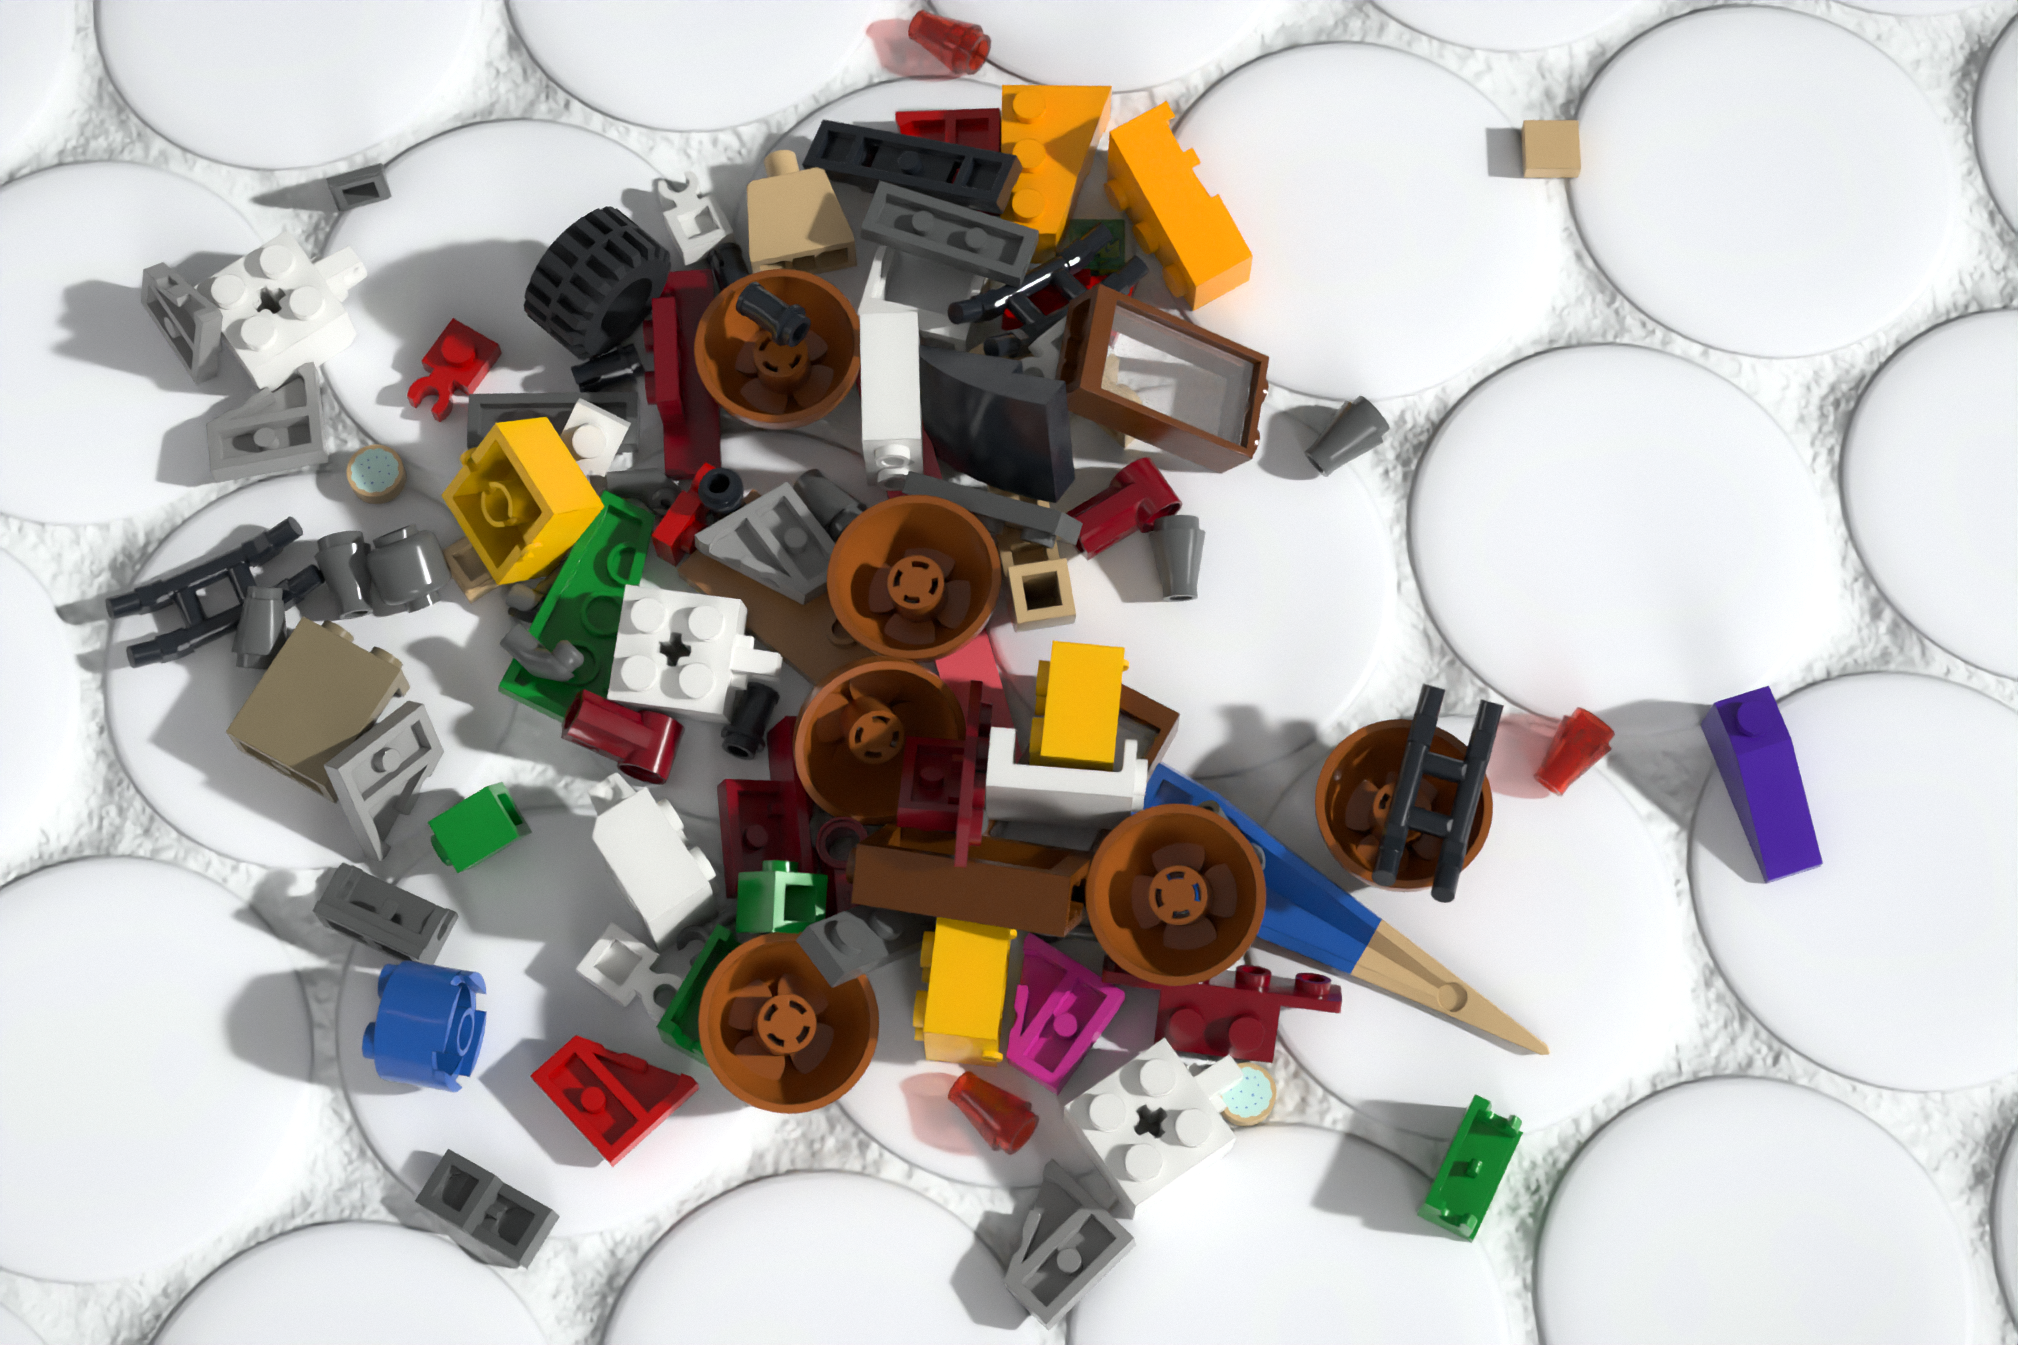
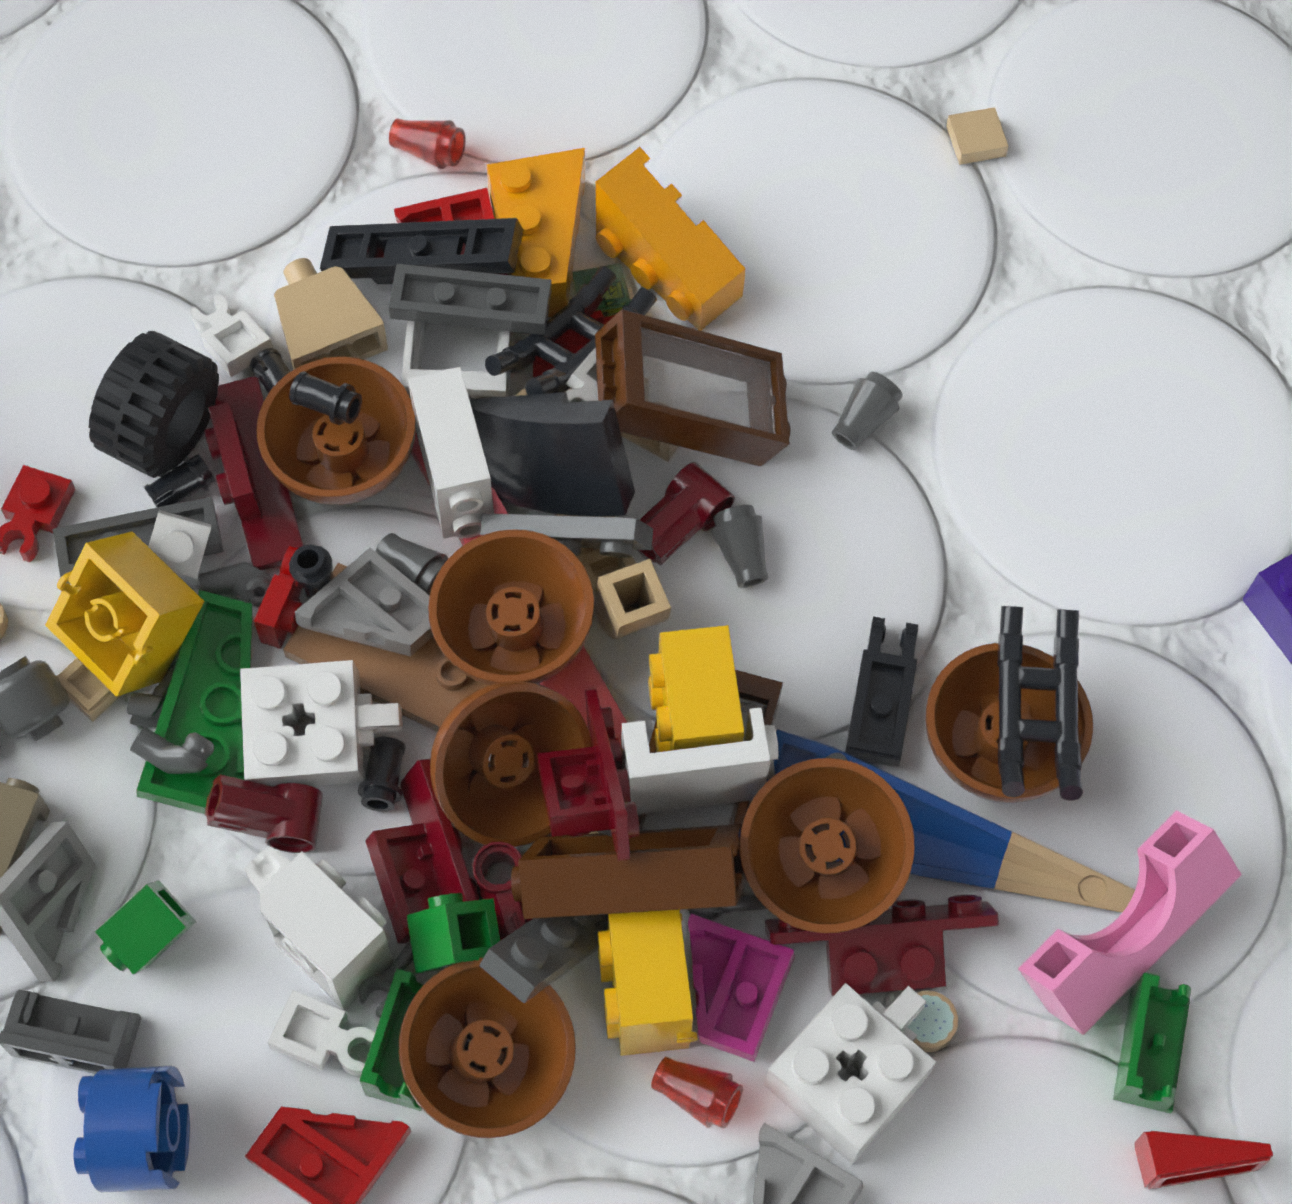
camera: 15 degrees left, 5 degrees down
(1284, 750) = (882, 698): none -> black hinge
(1470, 1290) = (1183, 1158): none -> red slope
(1538, 1008) = (1178, 880): none -> bright pink arch
(1573, 750) = (1141, 642): clear red cone -> none

